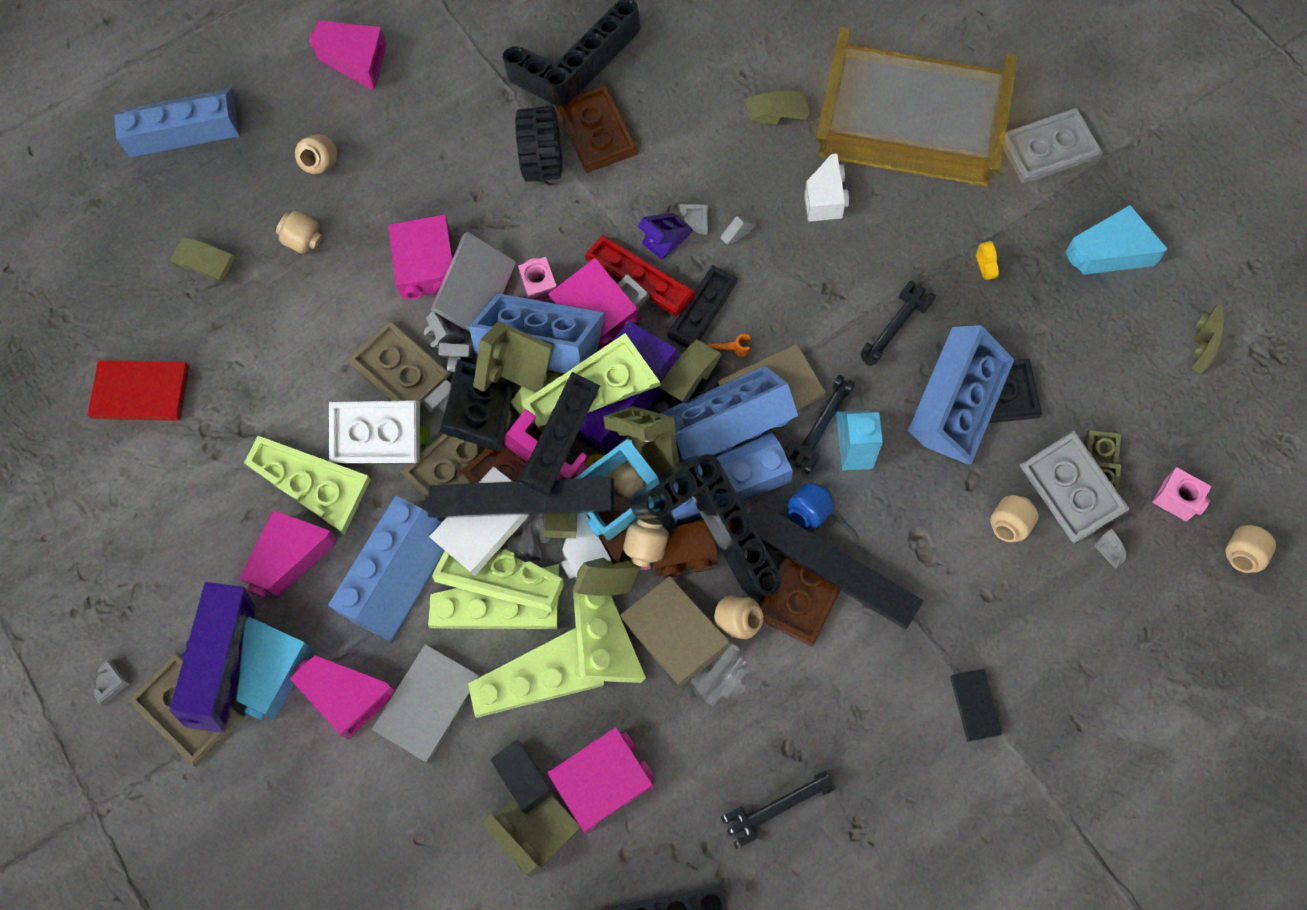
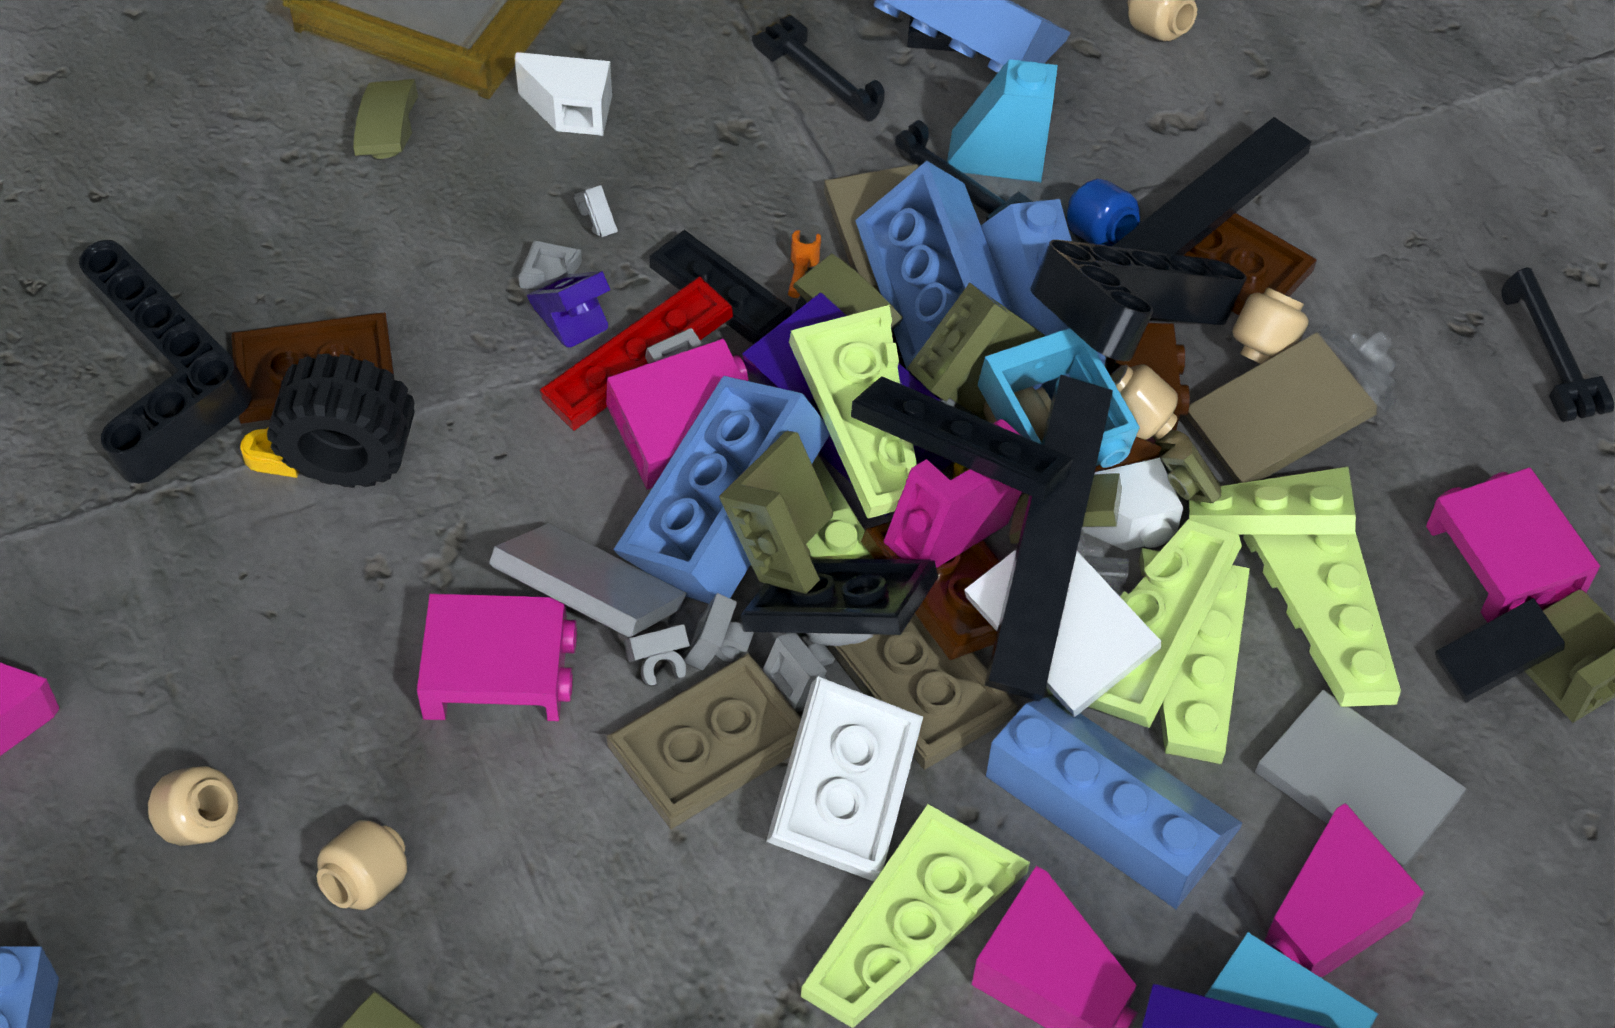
camera: 85 degrees left, 15 degrees down
(535, 269) = (609, 471): bright pink brick -> none
(975, 705) = (1419, 112): black tile -> none

